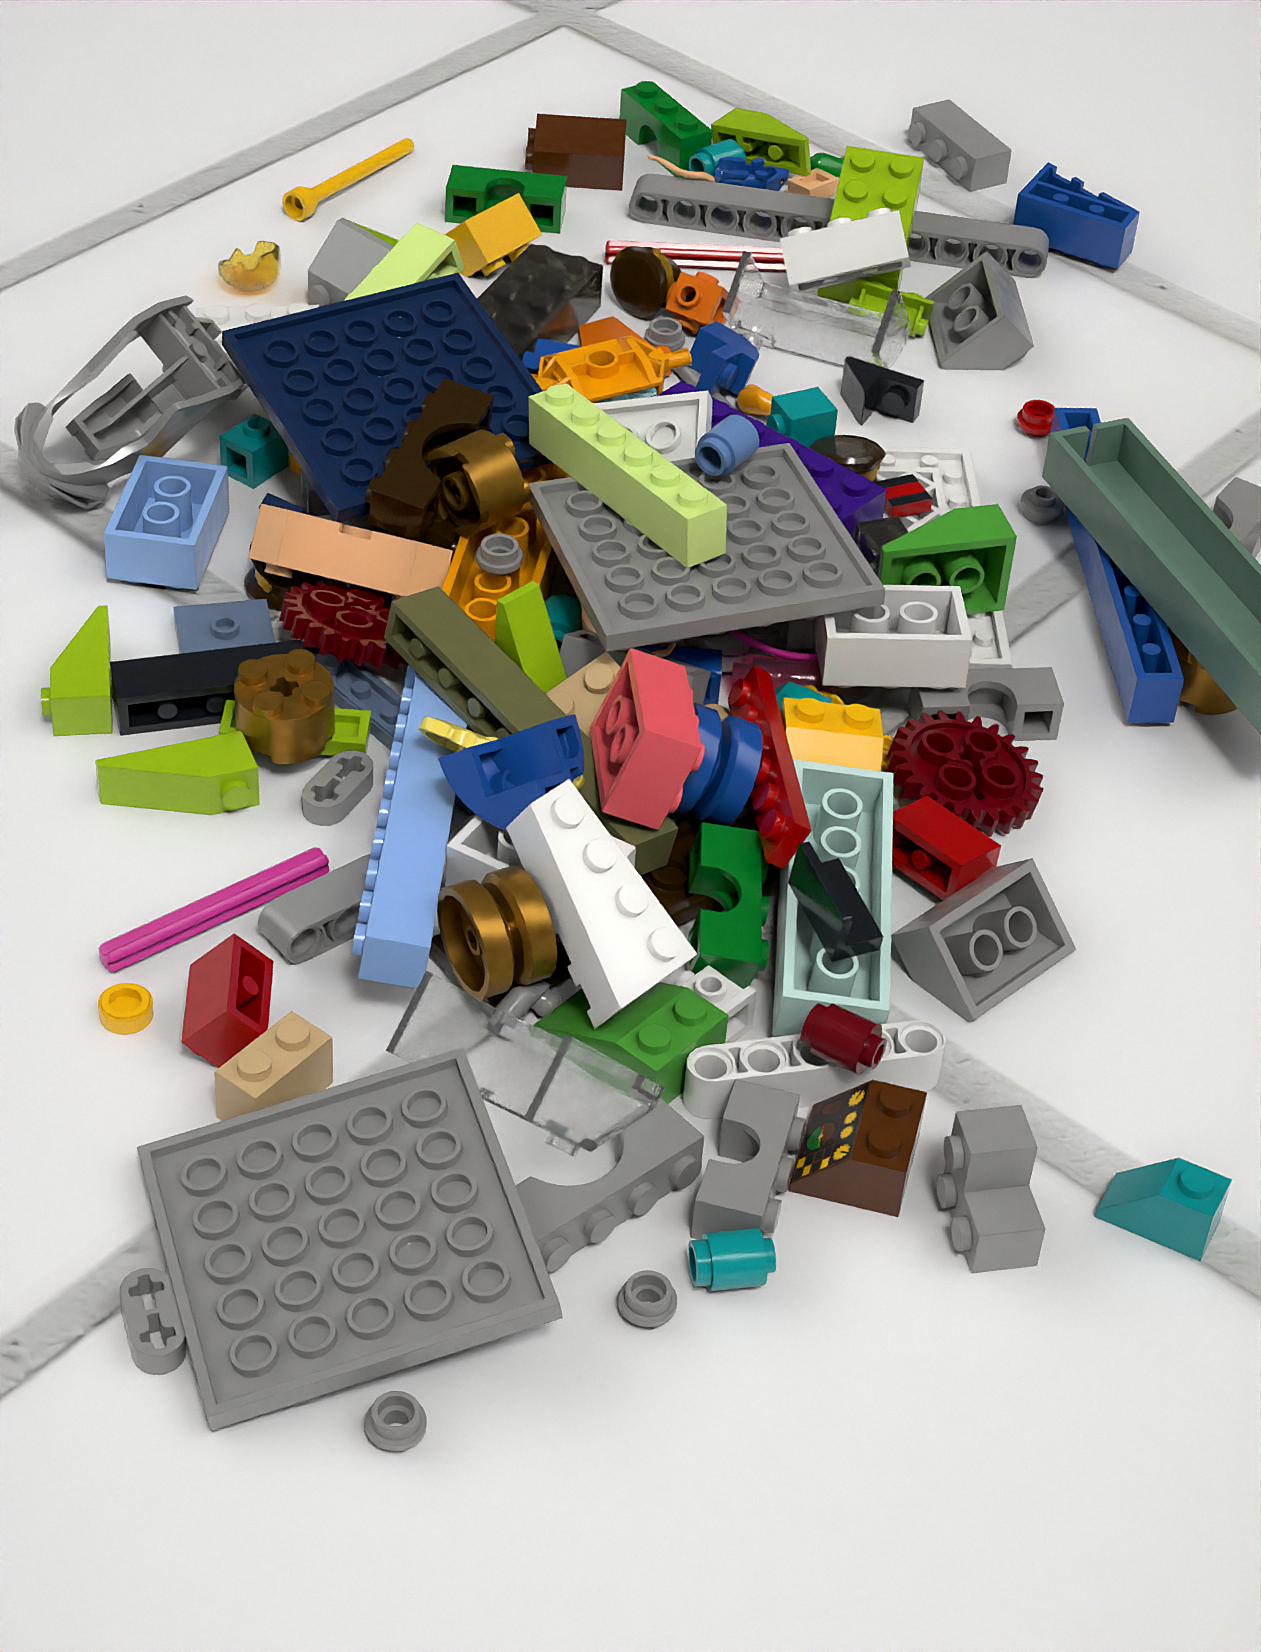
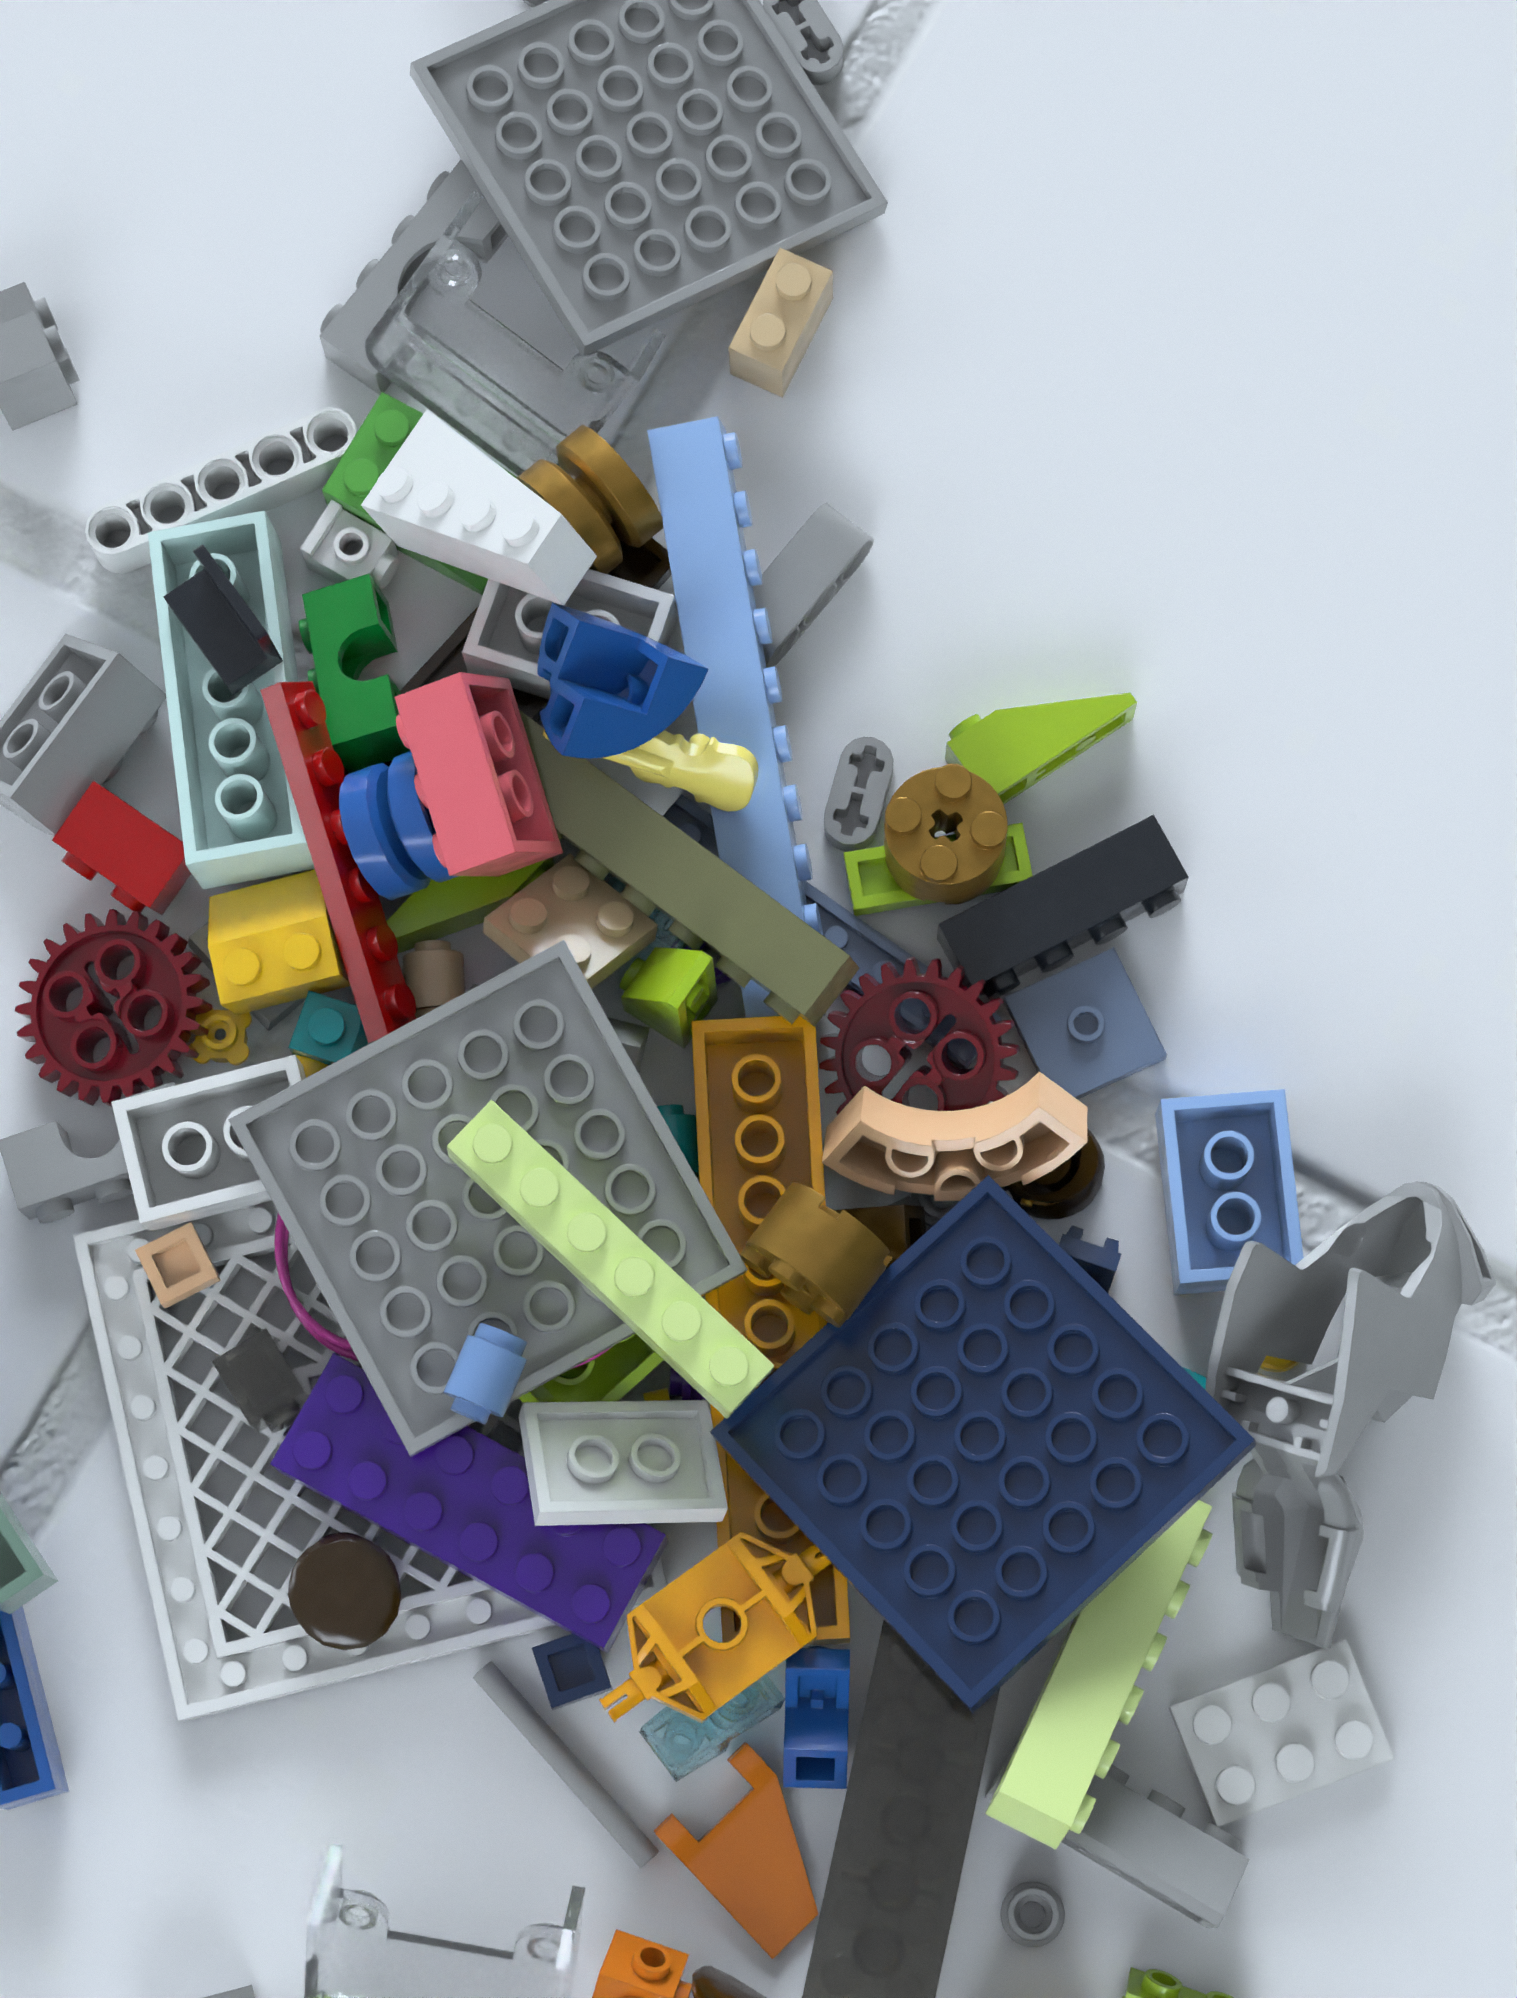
camera: 175 degrees right, 35 degrees up
(81, 681) = (1218, 856): lime slope -> none
(125, 1008) = (975, 402): yellow tile -> none
(212, 910) = (930, 564): dark pink axle -> none
(227, 1000) = (860, 397): red brick -> none
(254, 270) = (1351, 1884): clear yellow hair -> none
(407, 491) = (879, 1354): dark brown arch -> none
(499, 554) = (758, 1147): light grey plate -> none
(652, 1288) = (339, 157): light grey plate -> none
(665, 332) = (660, 1907): light grey plate -> none
(722, 359) = (564, 1842): blue brick -> none
(731, 1259) = (269, 225): teal brick -> none
(754, 400) = (498, 1764): light orange arm -> none
(759, 1132) = (272, 296): light grey arch -> none
(803, 415) = (421, 1645): teal brick -> none
(843, 1038) = (190, 467): dark red brick -> none
(861, 1147) = (161, 398): reddish brown slope -> none
(879, 389) = (350, 1829): black slope -> none
(905, 496) = (258, 1548): tile -> none
(957, 549) = (164, 1334): bright green slope -> none
(1036, 418) = (68, 1860): red plate -> none
(1041, 505) = (82, 1648): light grey plate -> none

